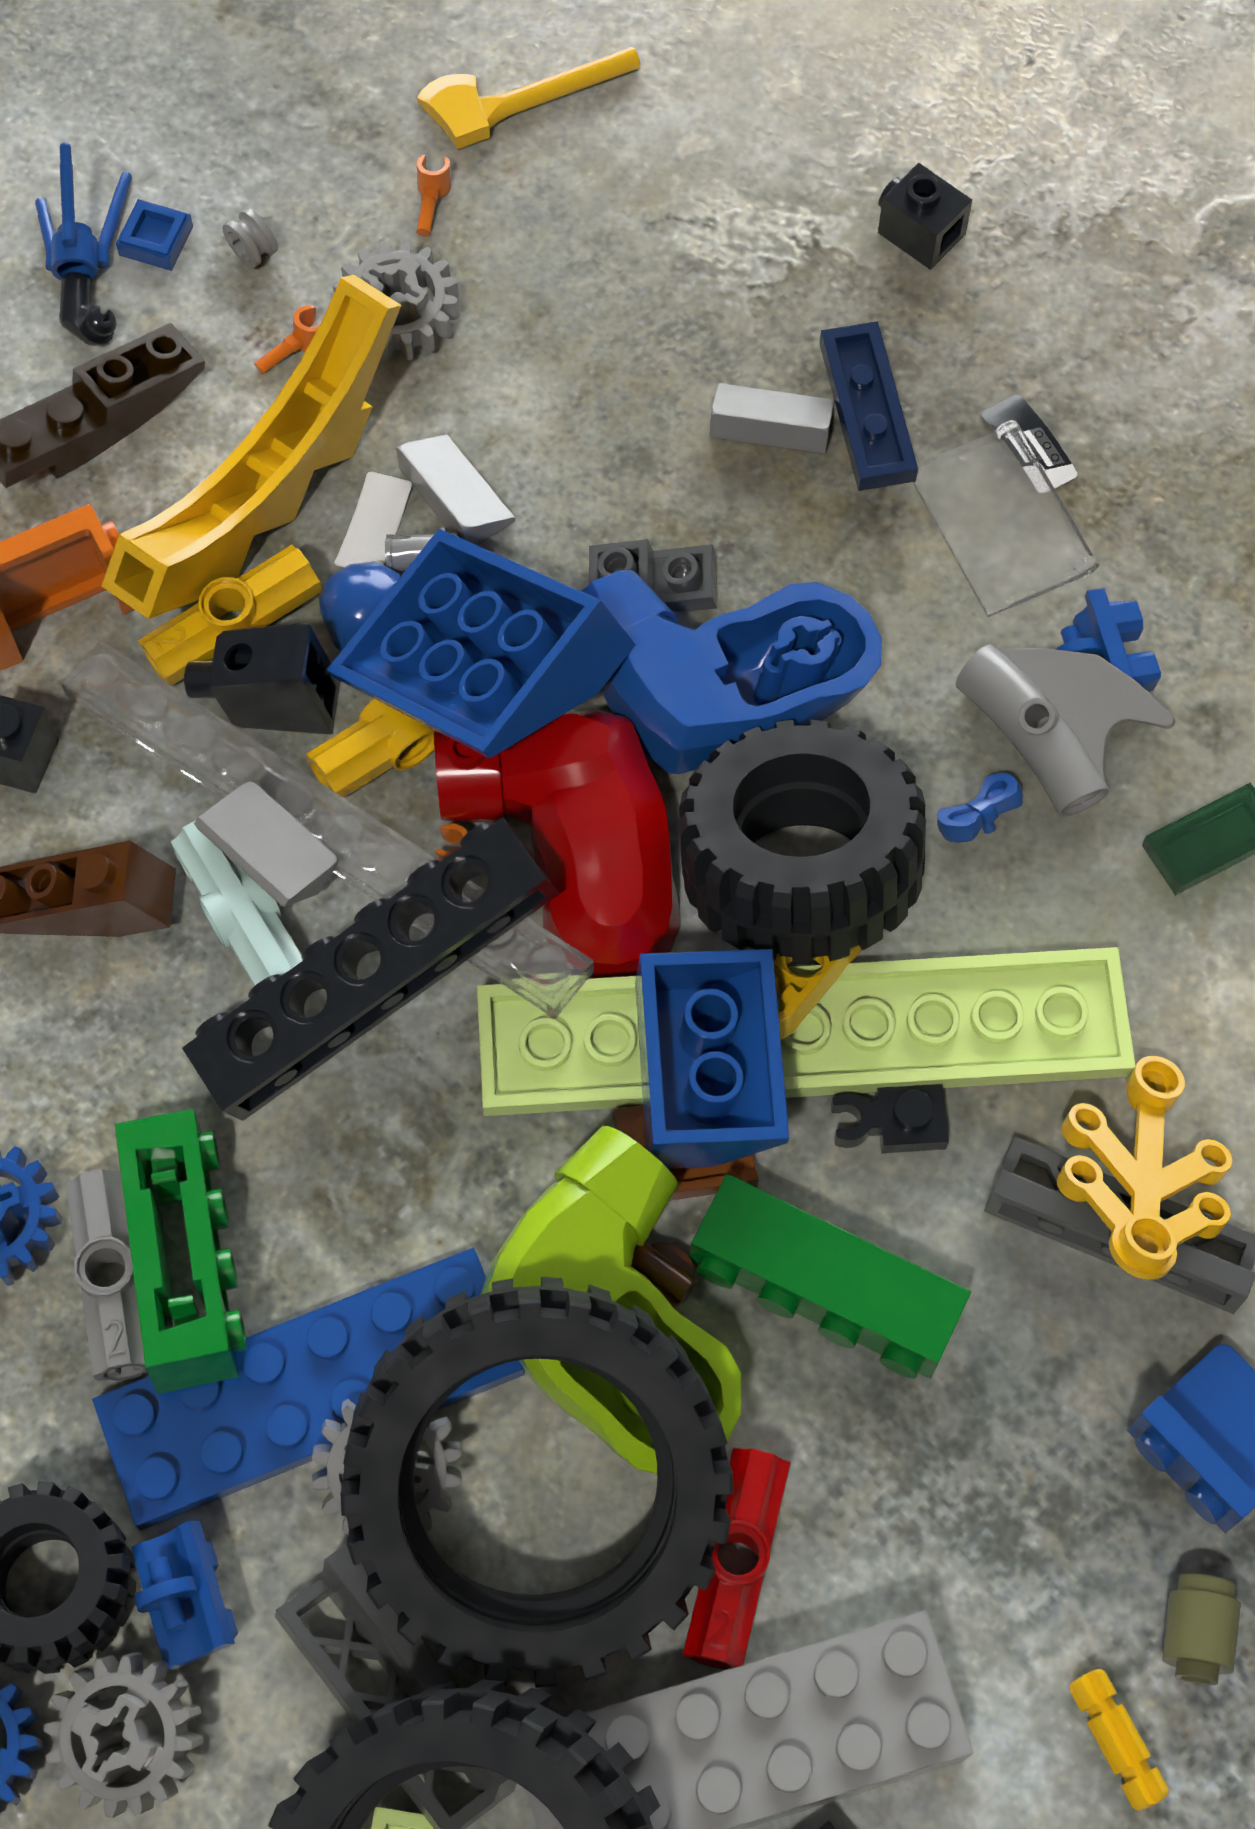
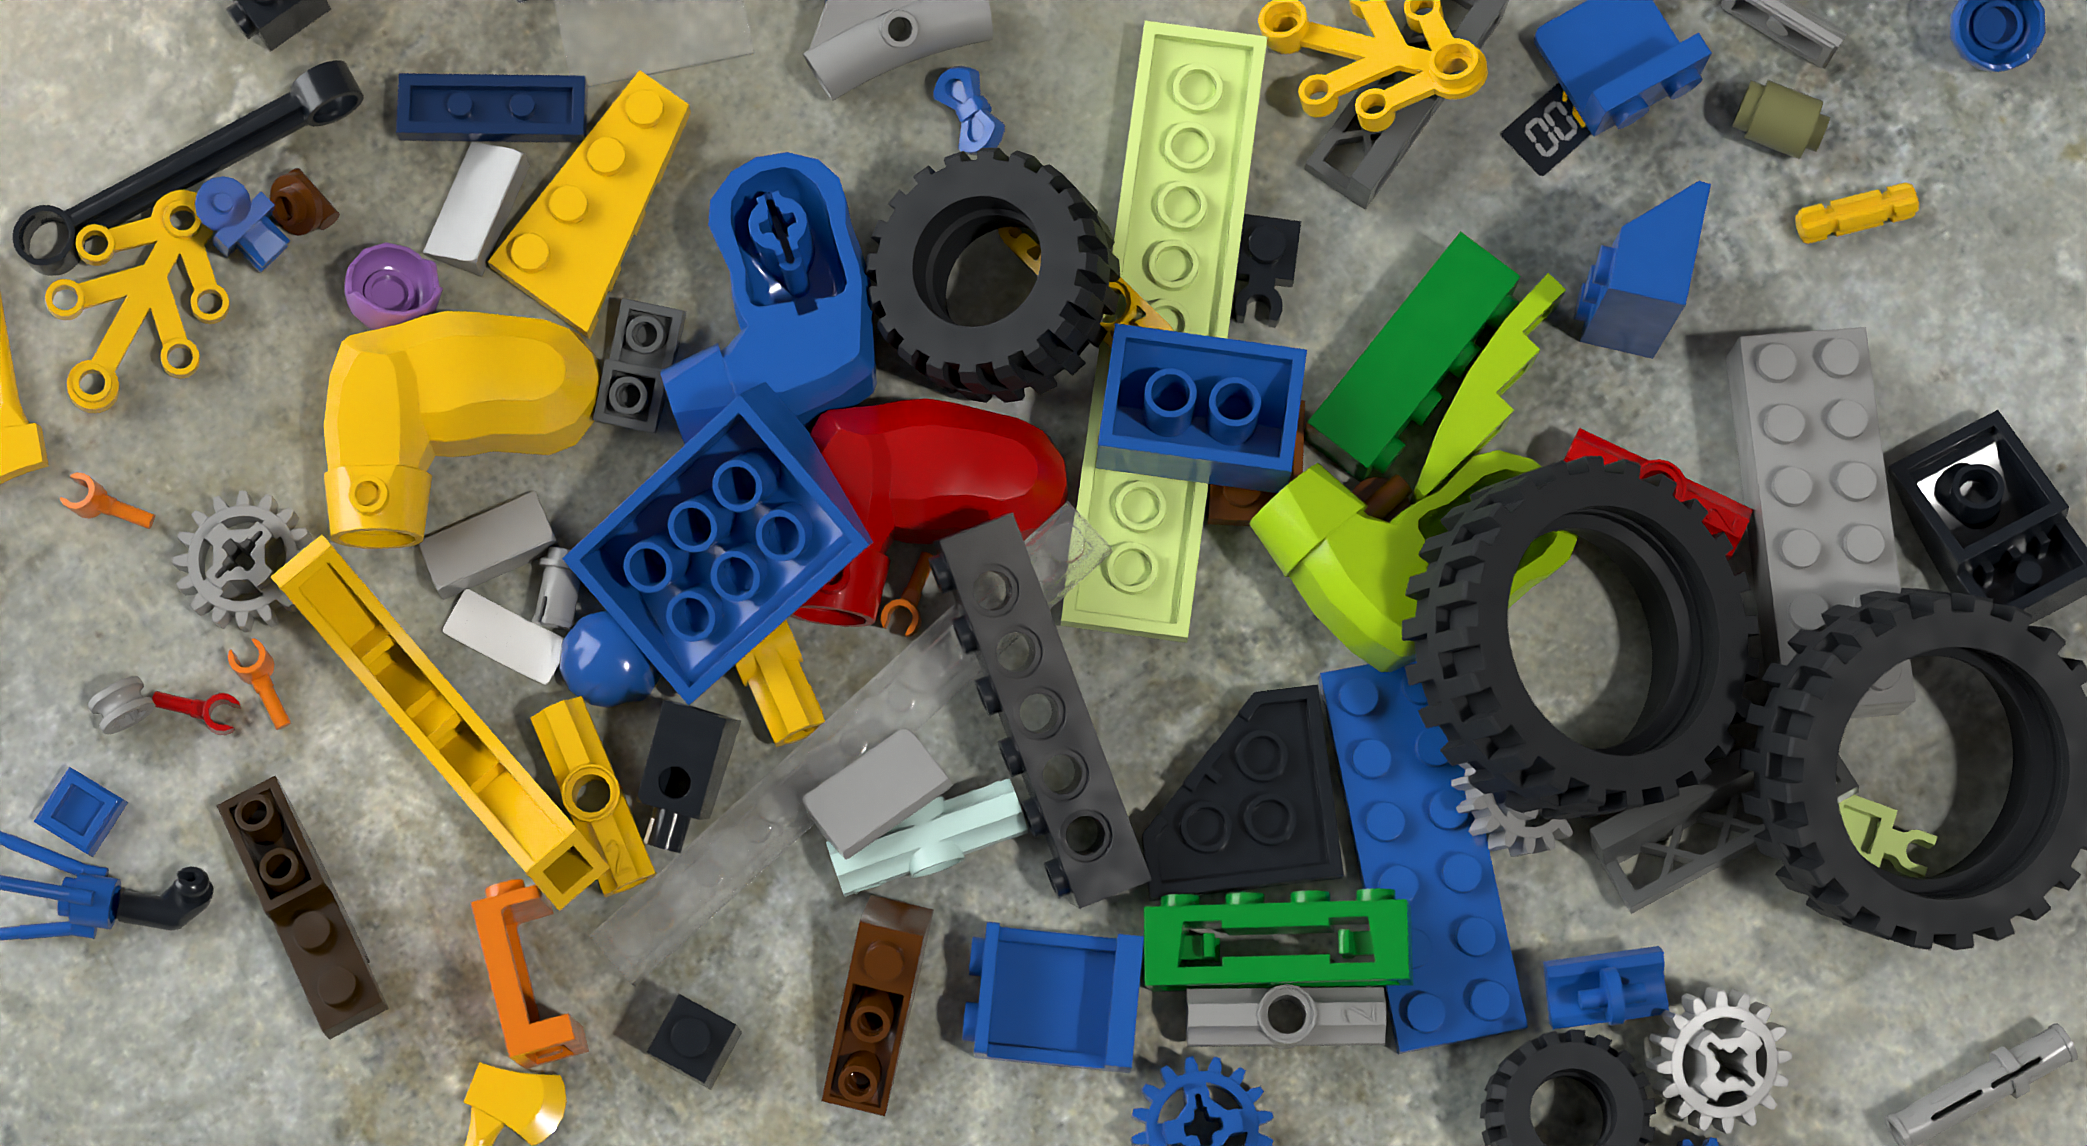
camera: 80 degrees left, 10 degrees up
(99, 1051) = (1054, 998): none -> blue panel
(260, 301) = (198, 708): none -> red hand
(324, 1206) = (1252, 806): none -> black plate
(585, 417) = (446, 391): none -> yellow piece
(625, 178) = (144, 289): none -> yellow plant
(672, 357) = (391, 286): none -> medium lavender hair
(698, 226) = (240, 225): none -> blue hips
(738, 278) = (300, 204): none -> reddish brown plate
(782, 503) = (581, 224): none -> yellow wing
(783, 1349) = (1478, 409): none -> lime slope
(839, 267) = (314, 99): none -> black piece
(970, 1484) = (1644, 276): none -> blue slope
(1119, 1381) = (1547, 131): none -> black sticker

